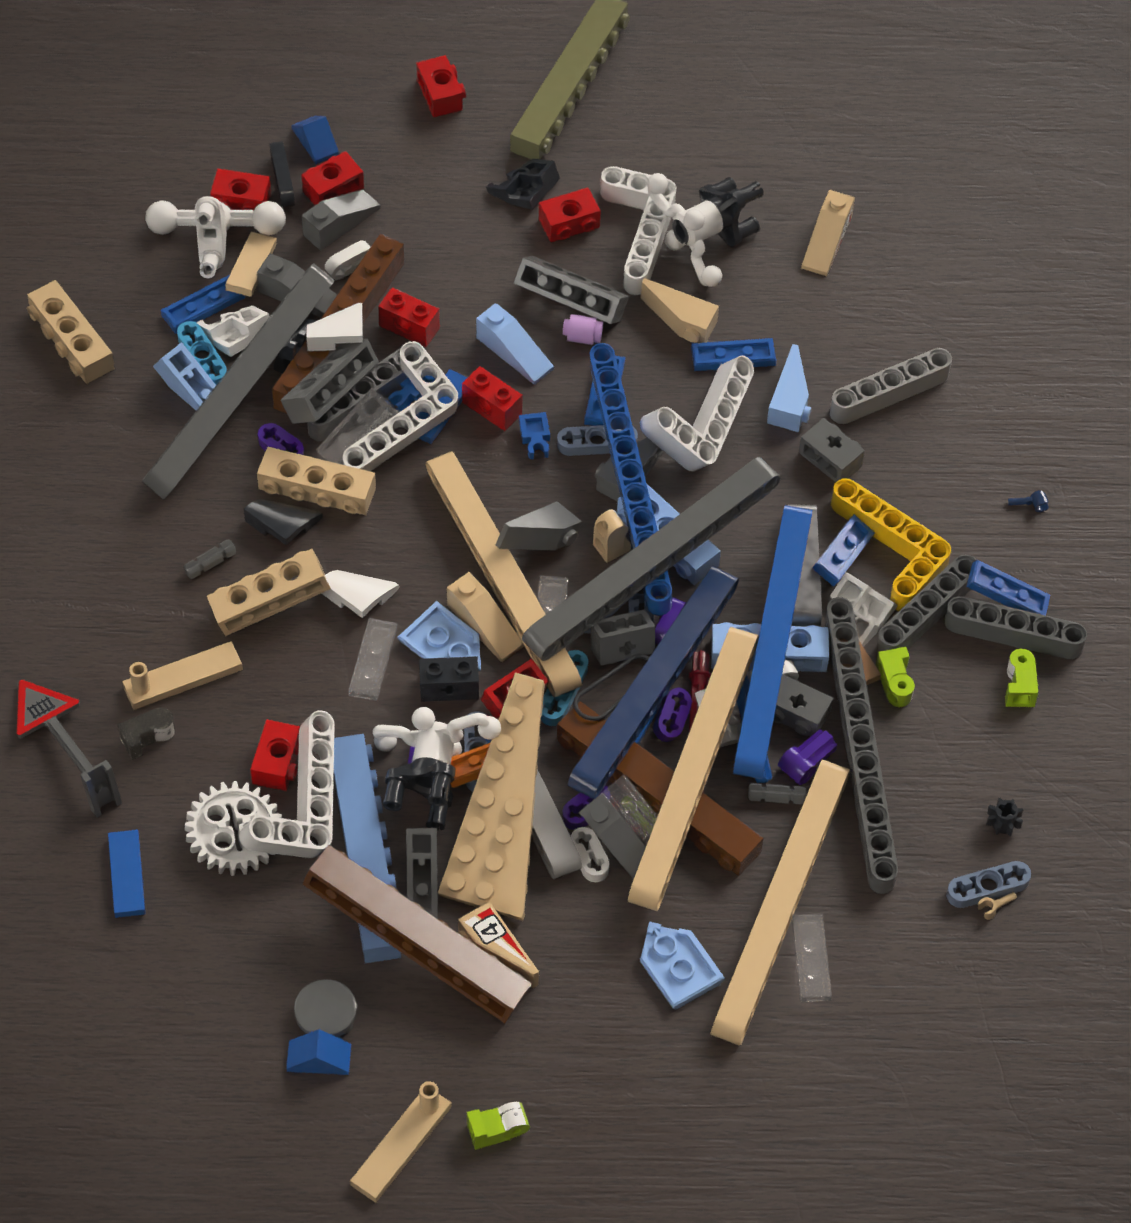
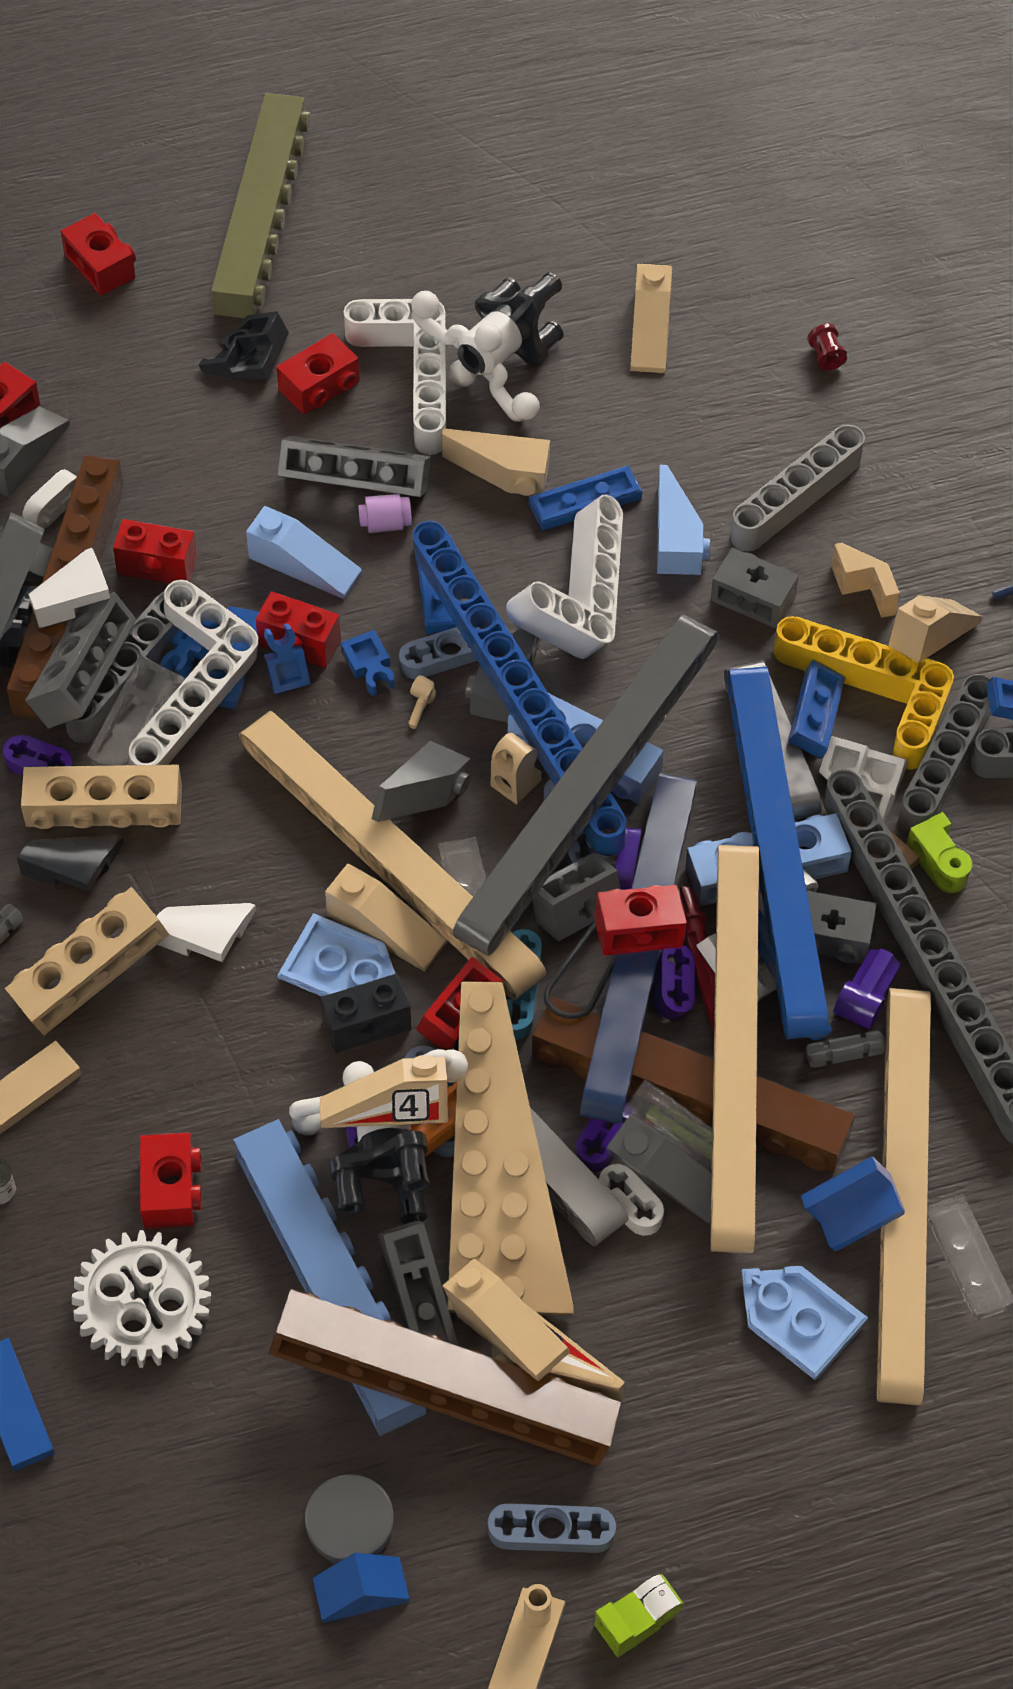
camera: 15 degrees left, 0 degrees up
(308, 796) = (230, 1227): white beam -> none
(372, 659) = (253, 1014): clear tile -> none
(444, 736) = (395, 1095): none -> tan slope
(469, 906) = (504, 1319): none -> tan slope
(474, 420) = (287, 663): none -> blue plate
(483, 1053) = (520, 1513): none -> sand blue beam
(568, 467) = (425, 692): none -> tan hand
(655, 663) = (640, 919): none -> red brick
(741, 897) = (854, 1203): none -> blue panel
(915, 460) = (861, 572): none -> tan slope
(947, 510) = (929, 625): none -> tan slope
(952, 286) = (827, 347): none -> dark red bush

